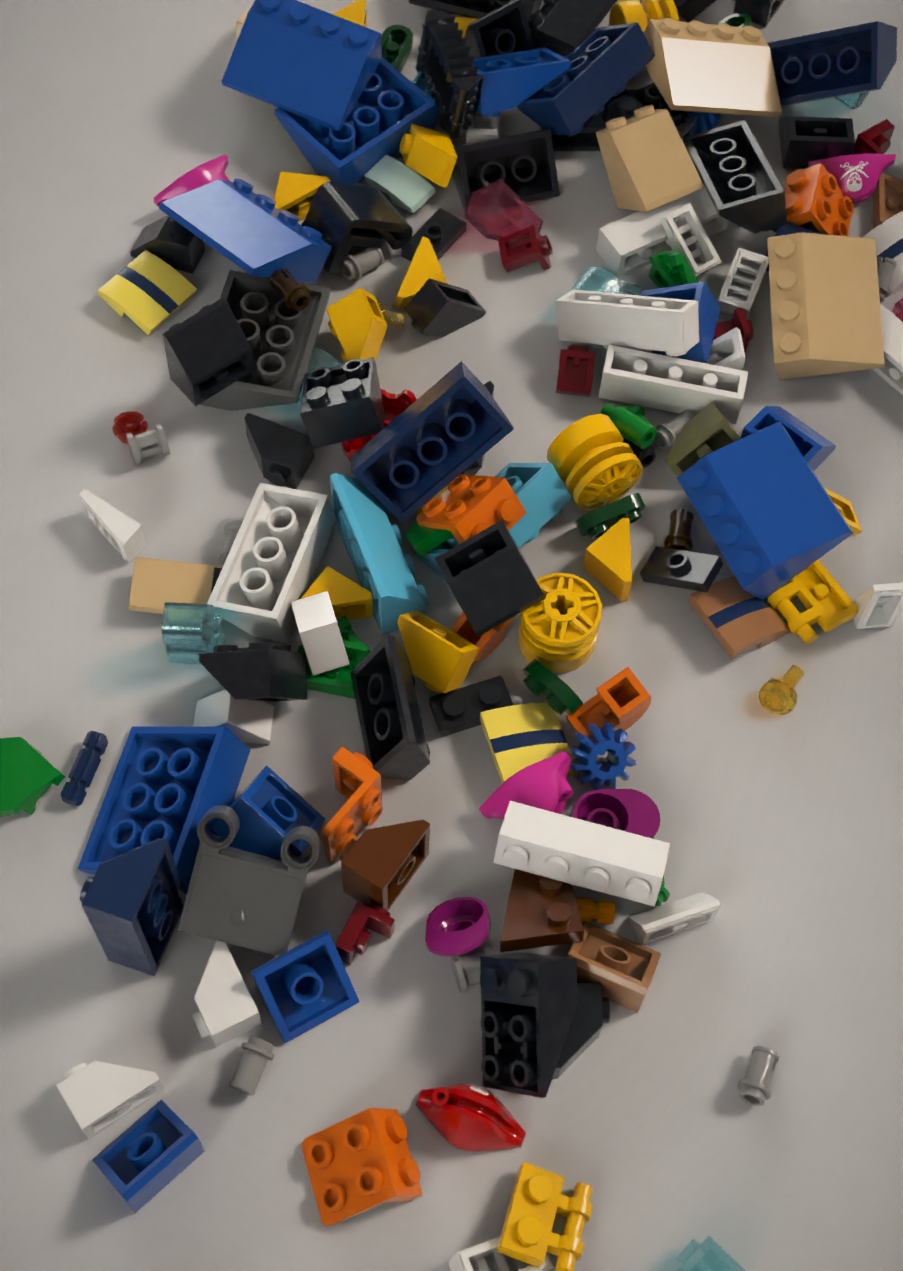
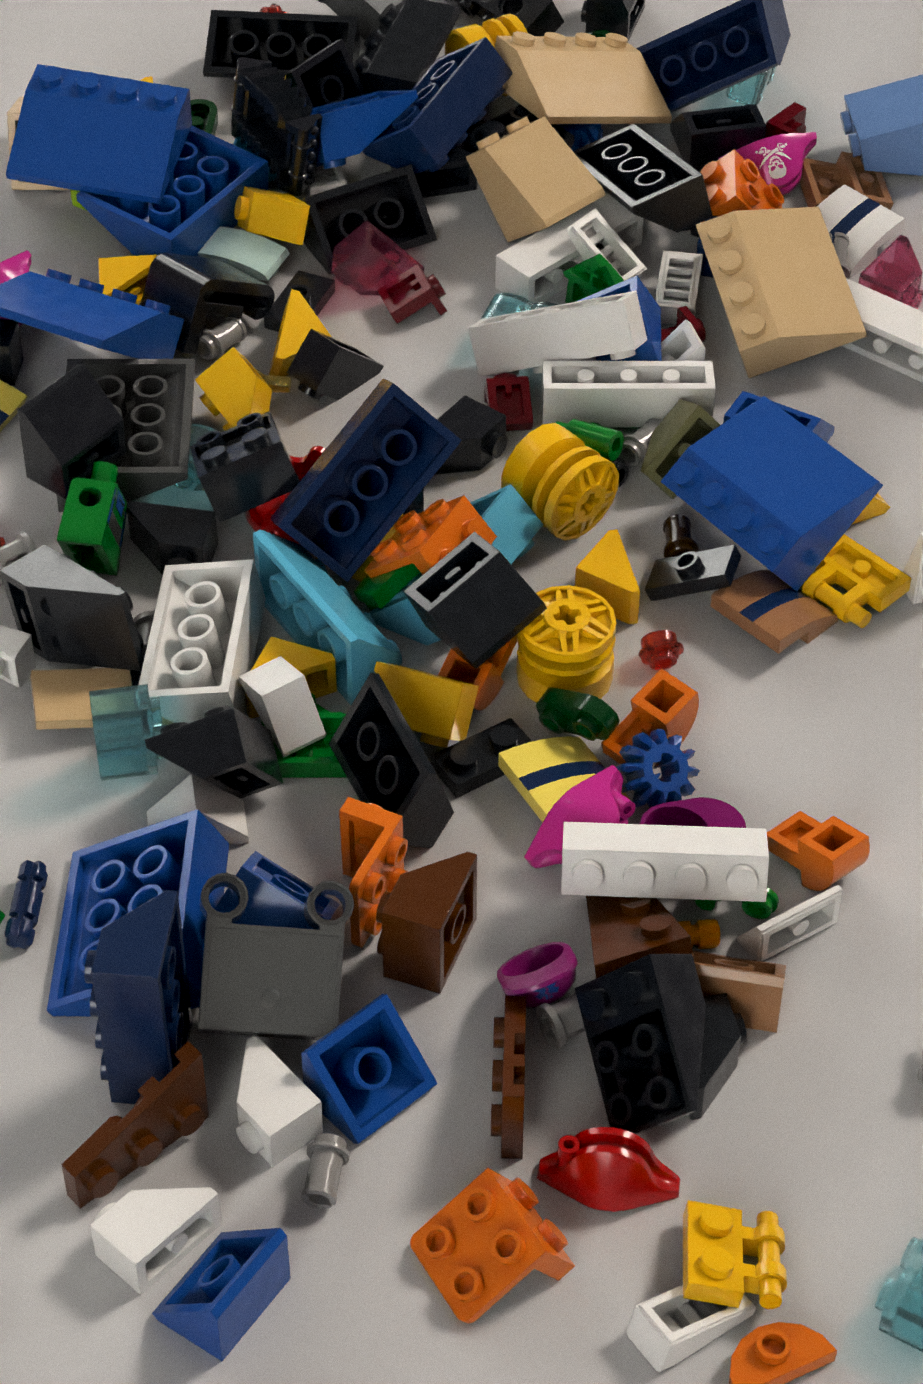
camera: 10 degrees left, 15 degrees down
(128, 996) = (158, 1119): none -> reddish brown wing
(174, 512) = (72, 612): none -> black slope
(214, 428) = (94, 520): none -> green torso
(295, 295) = (156, 366): dark brown pin -> none
(355, 934) = (422, 994): dark red bracket -> none
(413, 1016) = (509, 1077): none -> reddish brown wing
(532, 398) = (481, 435): none -> black slope
(598, 521) = (583, 537): dark green plate -> none
(637, 635) = (660, 649): none -> clear red plate
(715, 859) = (819, 850): none -> orange brick
(779, 695) = (845, 679): clear yellow plate -> none

